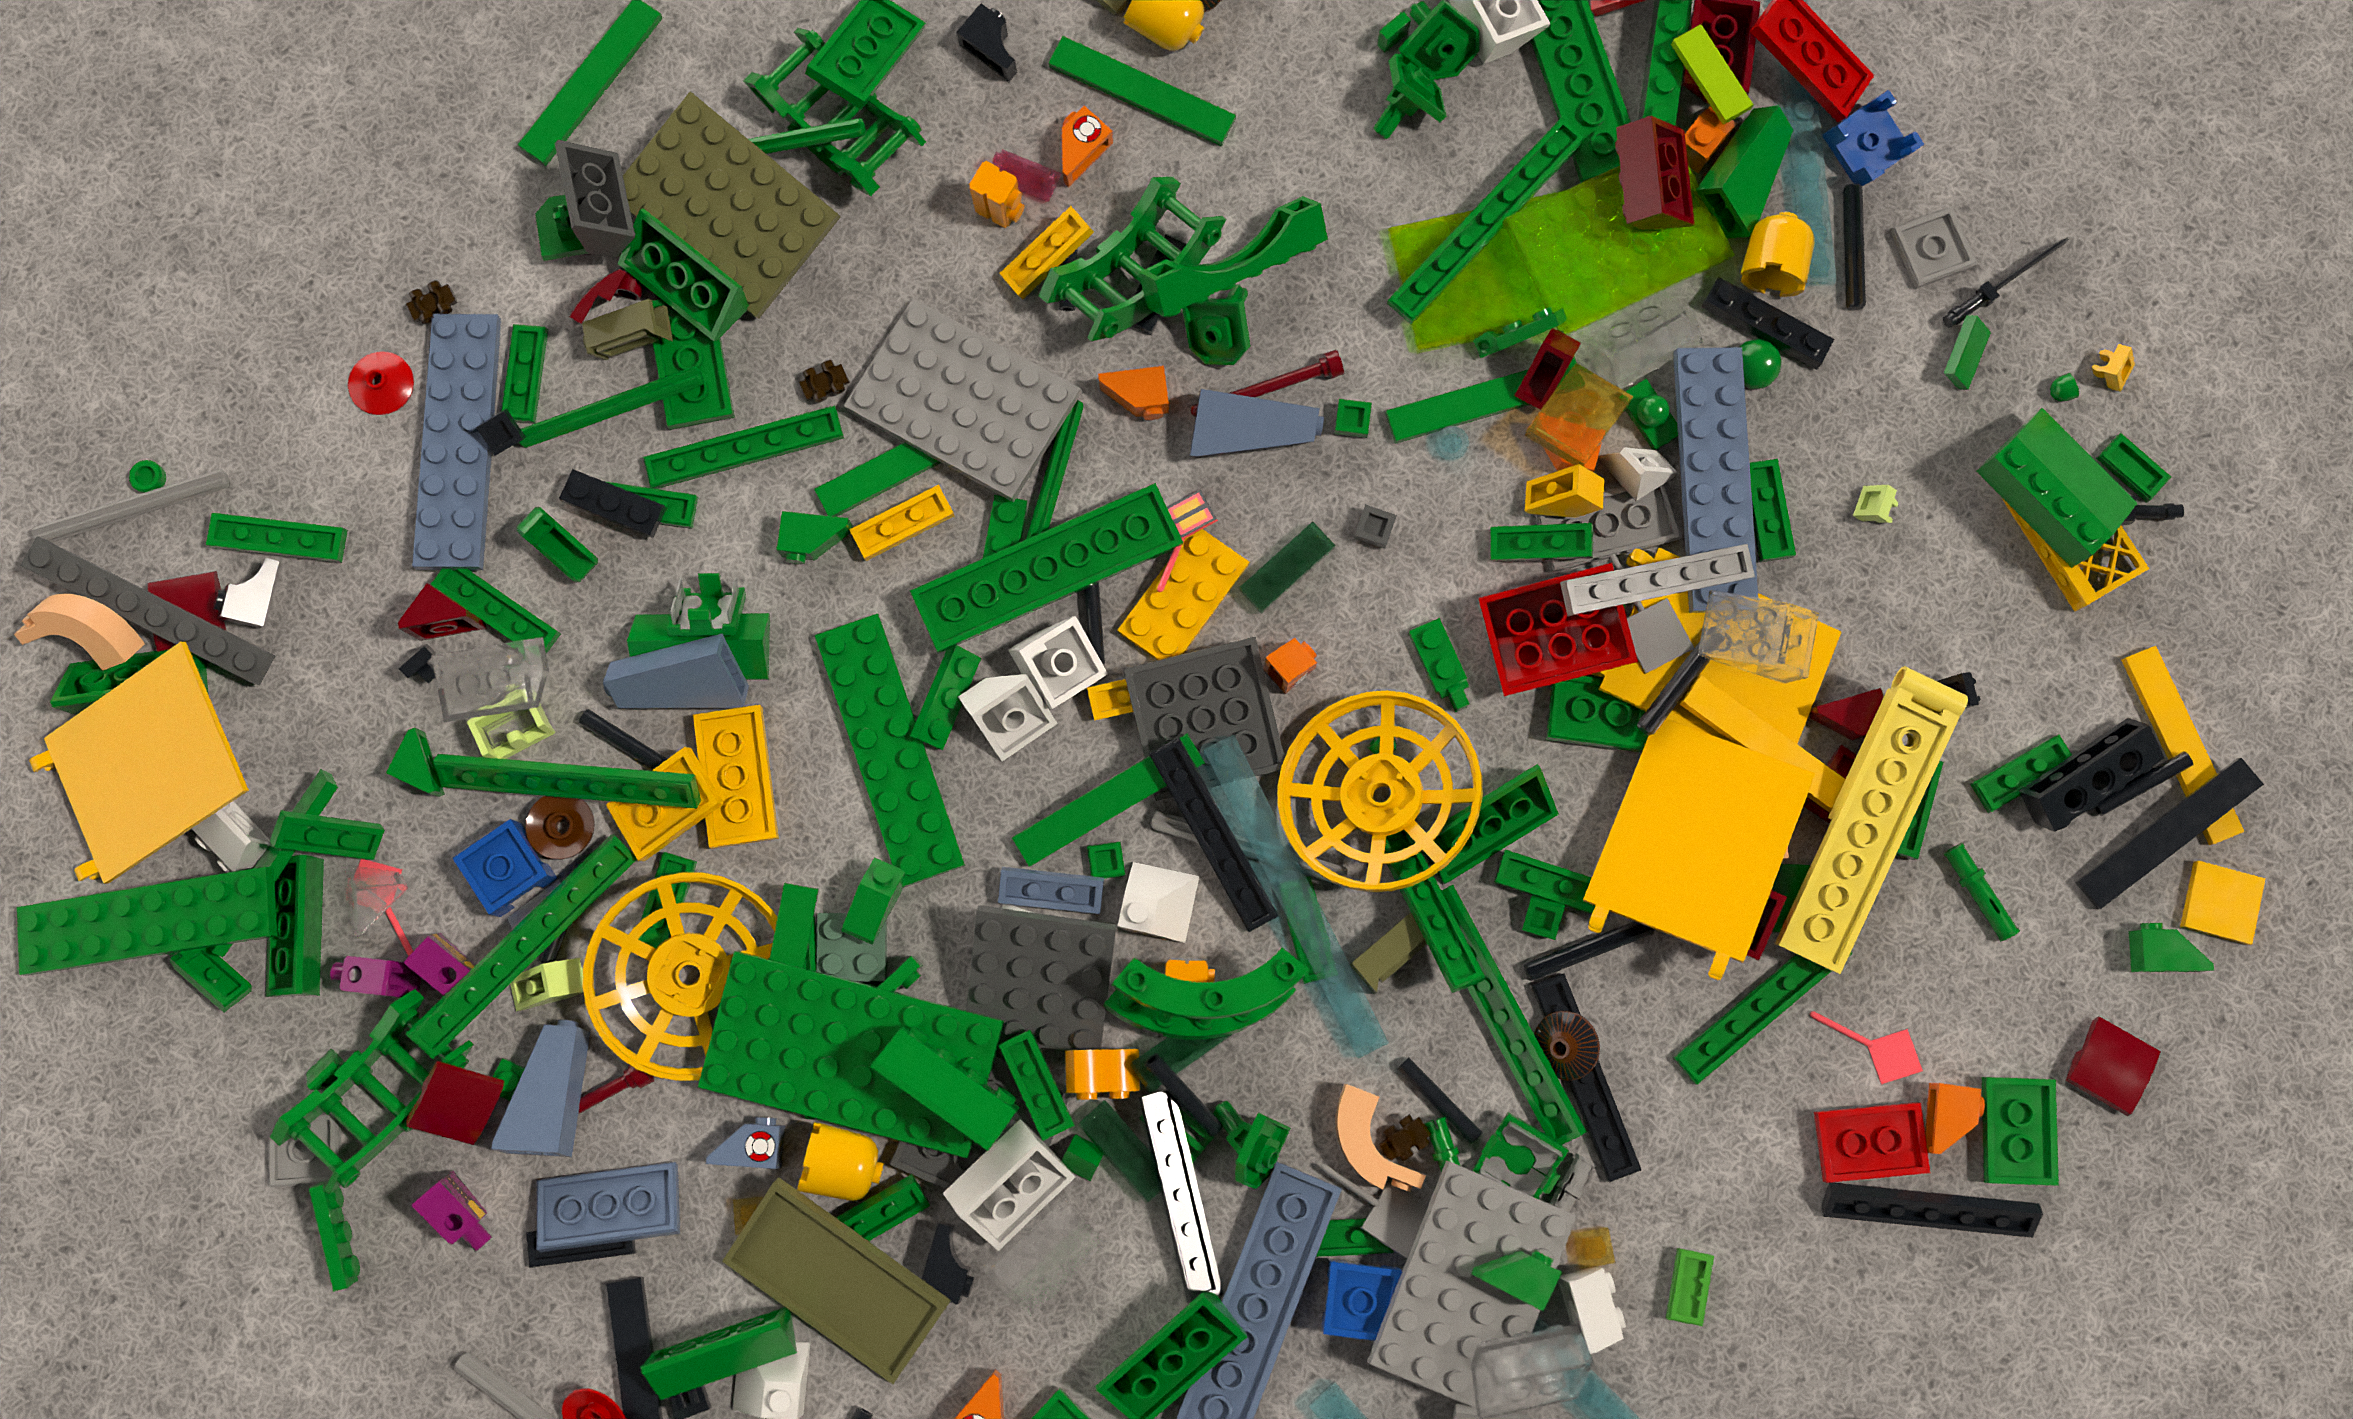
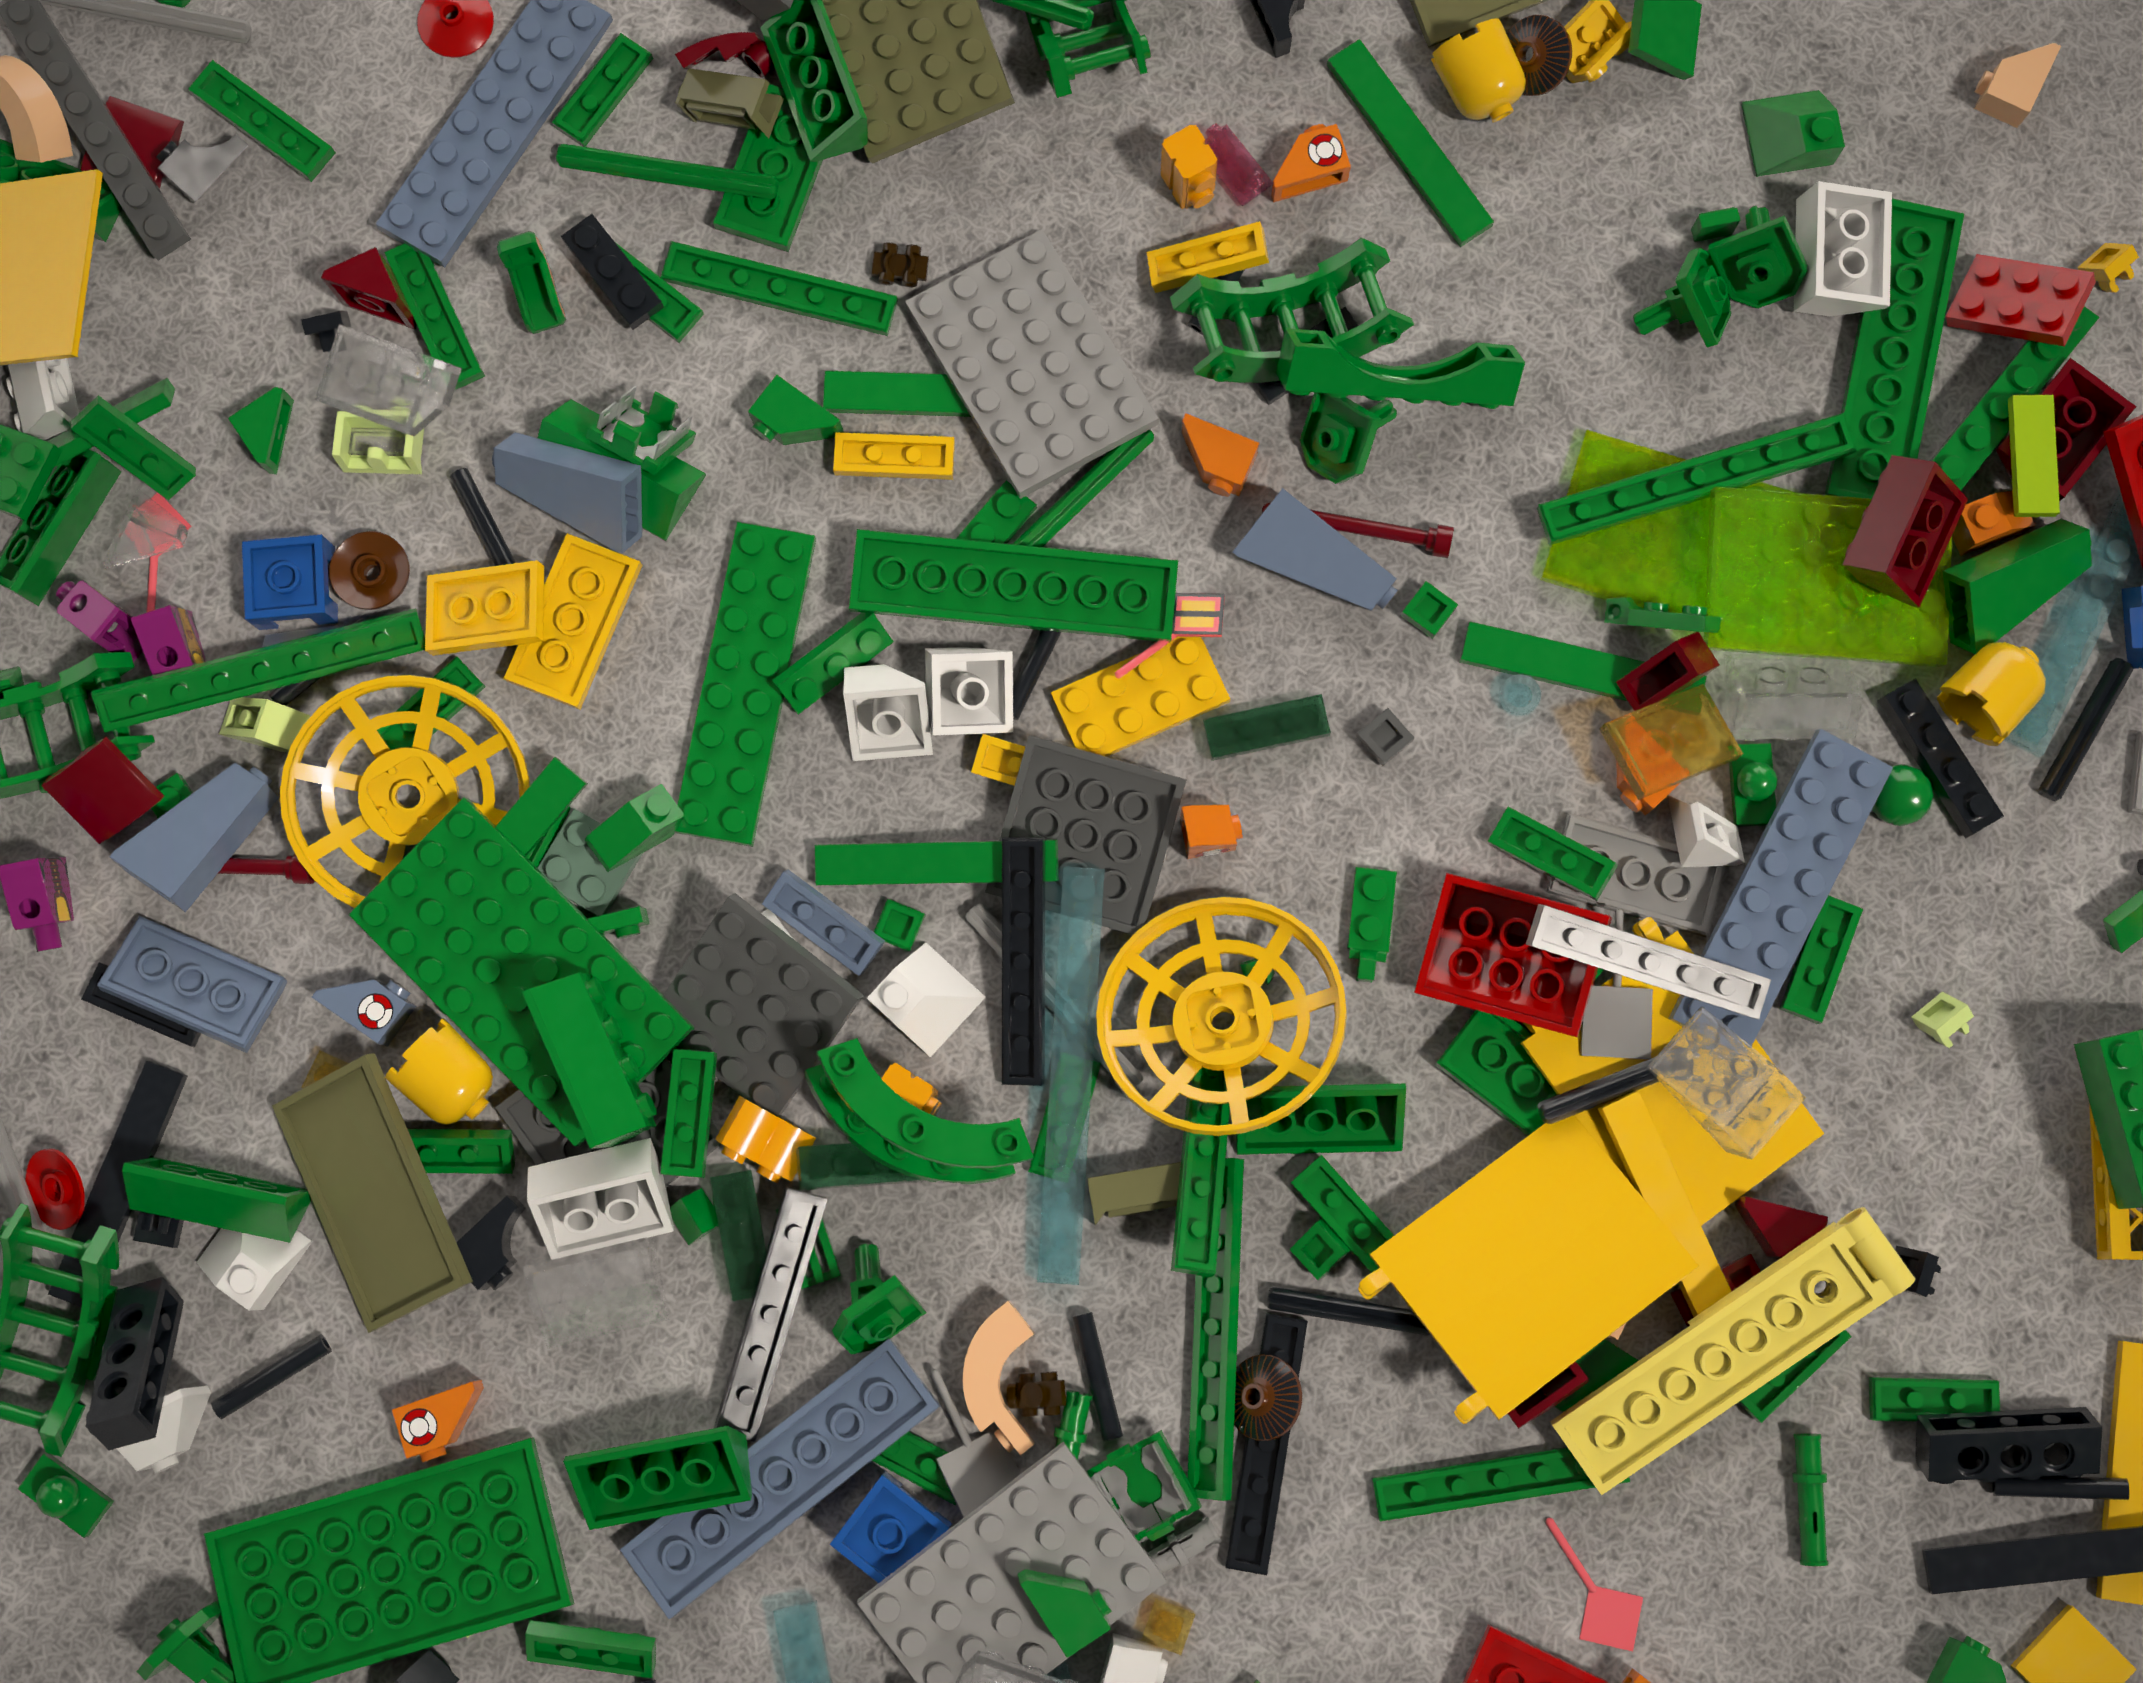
camera: 35 degrees right, 0 degrees up
(500, 432) = (542, 135): black tile -> none
(567, 780) = (402, 529): green tile -> none
(1183, 1095) = (831, 1212): black piece -> none
(1565, 493) = (1608, 815): yellow slope -> none

